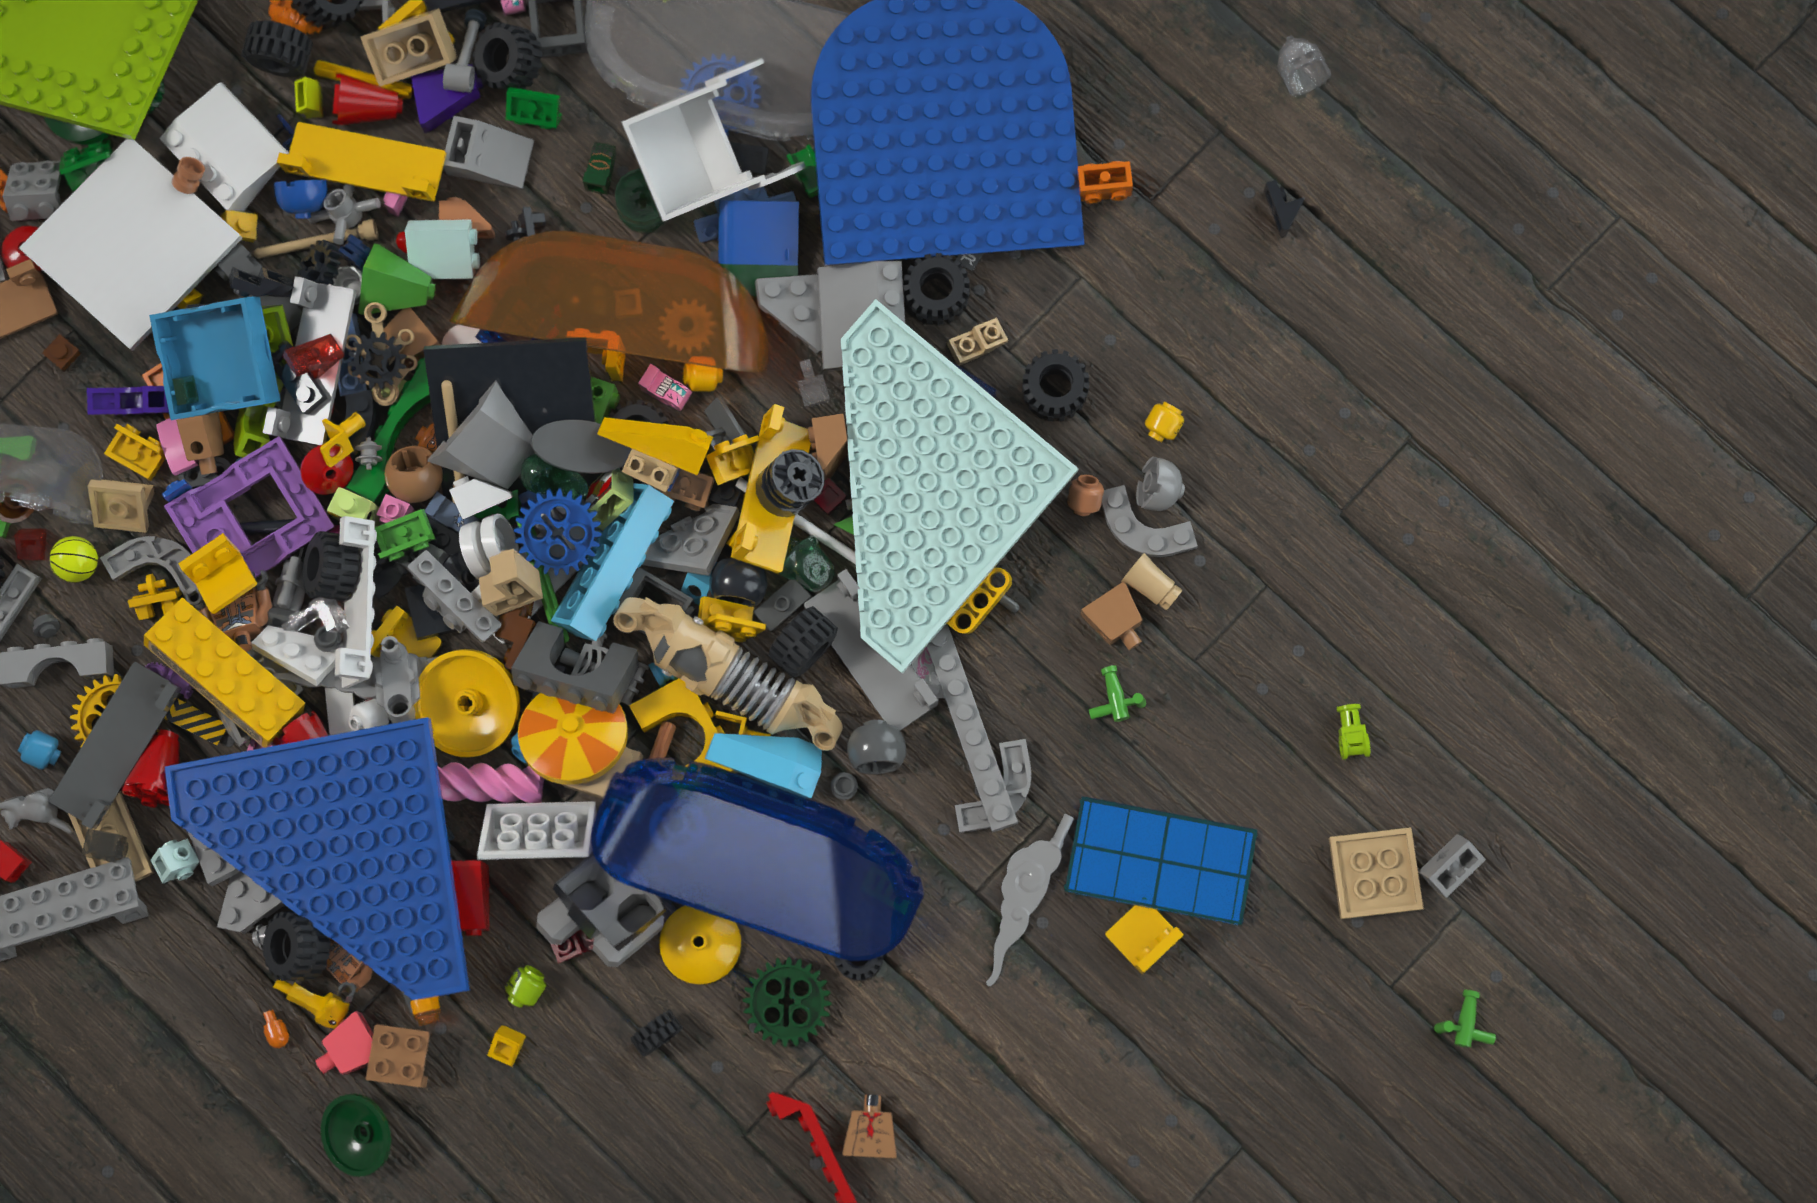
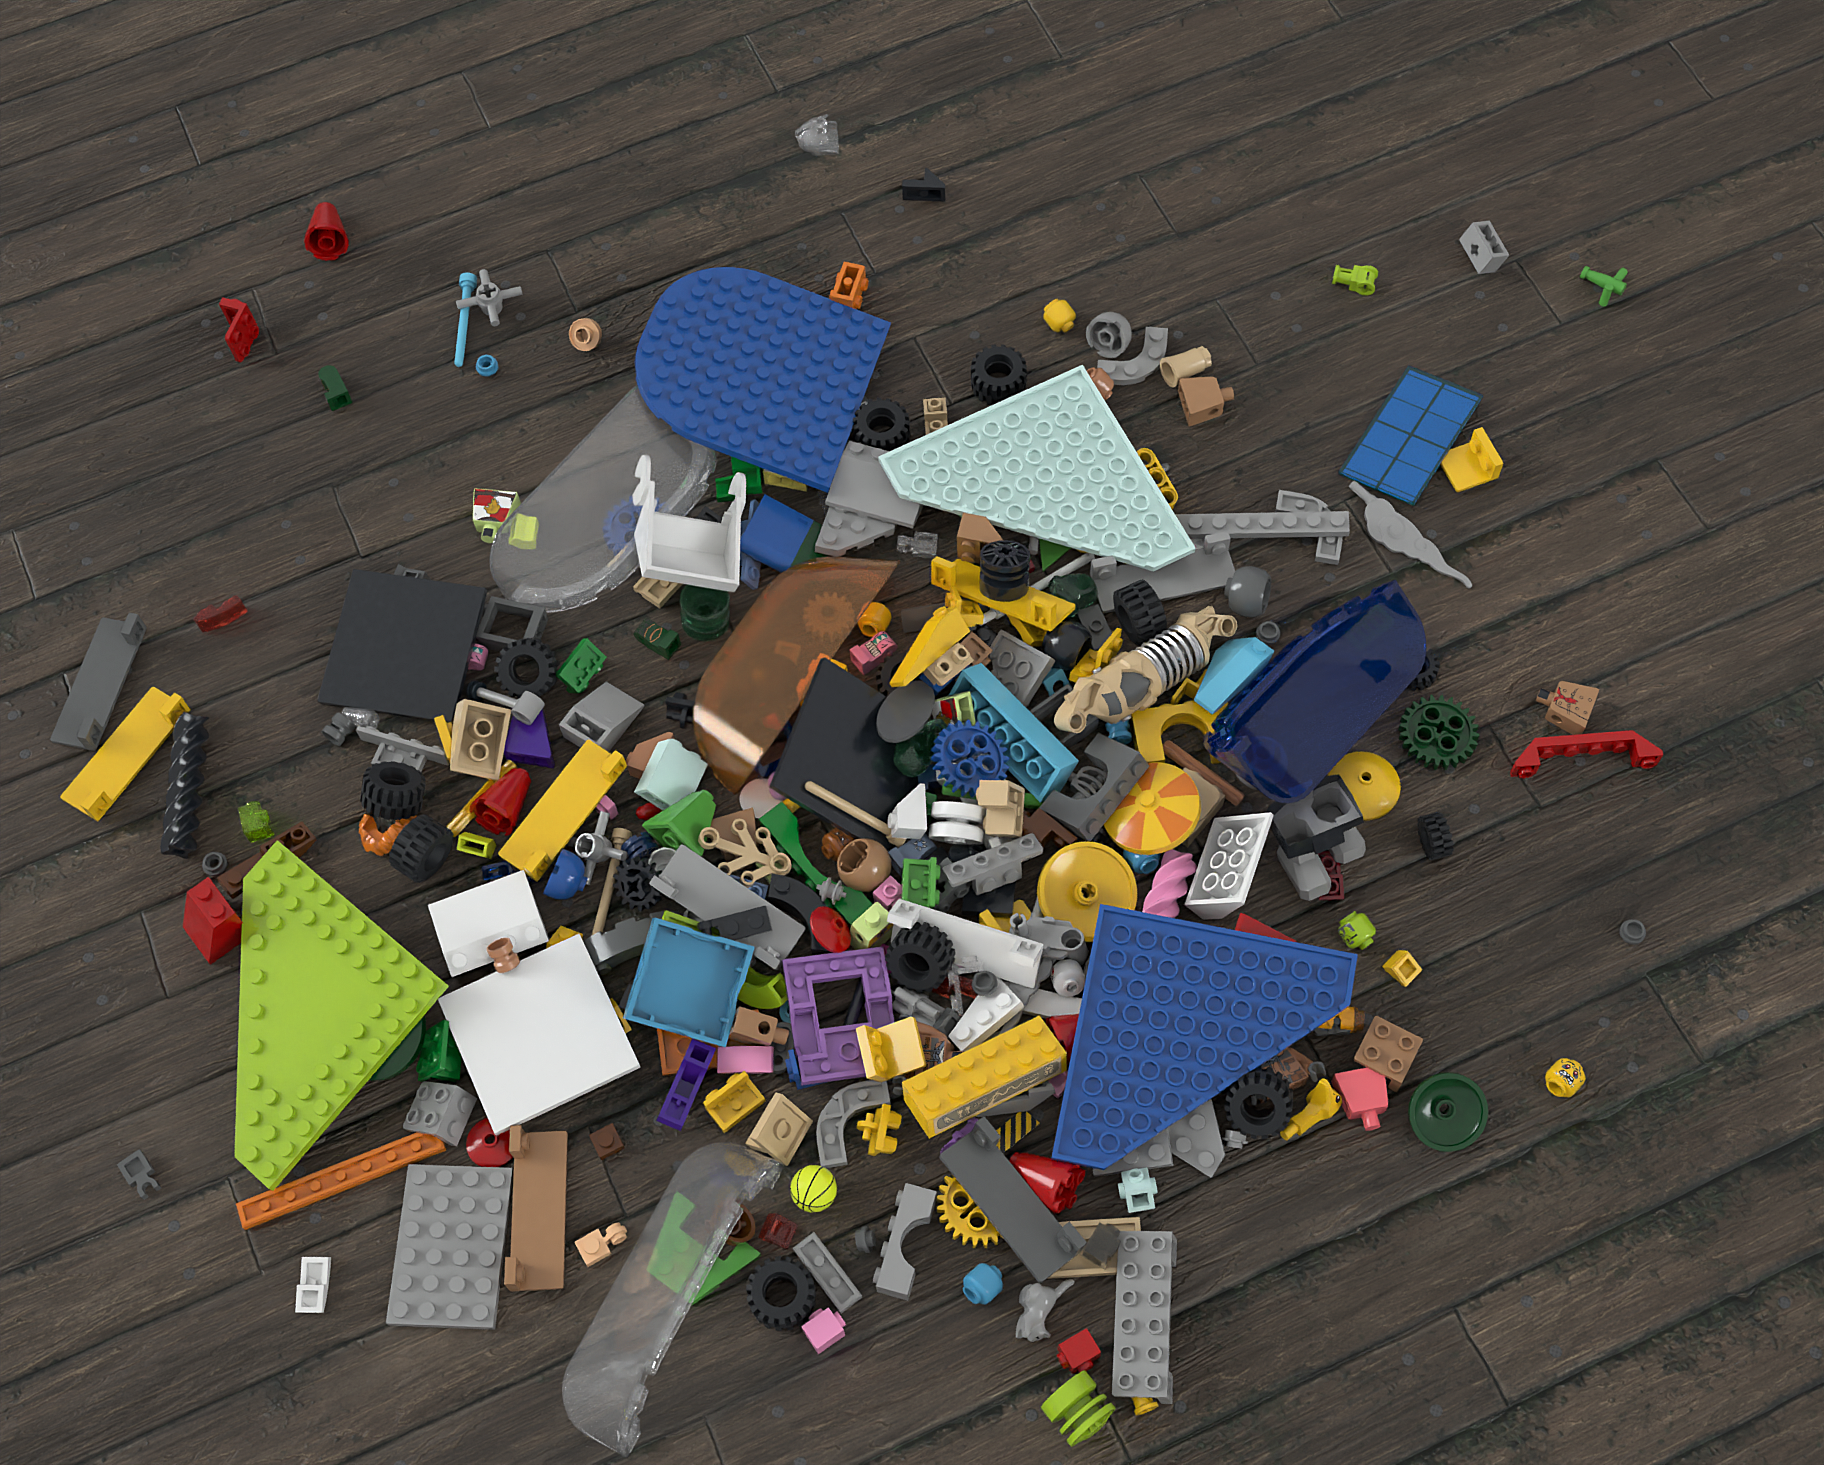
camera: 70 degrees left, 15 degrees down
(185, 390) = (703, 1024): clear green tile -> none
(266, 283) = (637, 919): black plate -> none
(275, 1030) = (1325, 1157): orange cylinder -> none
(314, 356) = (726, 896): clear red slope -> none
(340, 435) = (806, 903): yellow bracket -> none
(367, 366) = (759, 843): black gear -> none
(488, 442) = (870, 781): light grey wedge -> none
(1117, 701) = (1271, 421): bright green piece -> none
(1375, 873) = (1471, 300): tan plate -> none

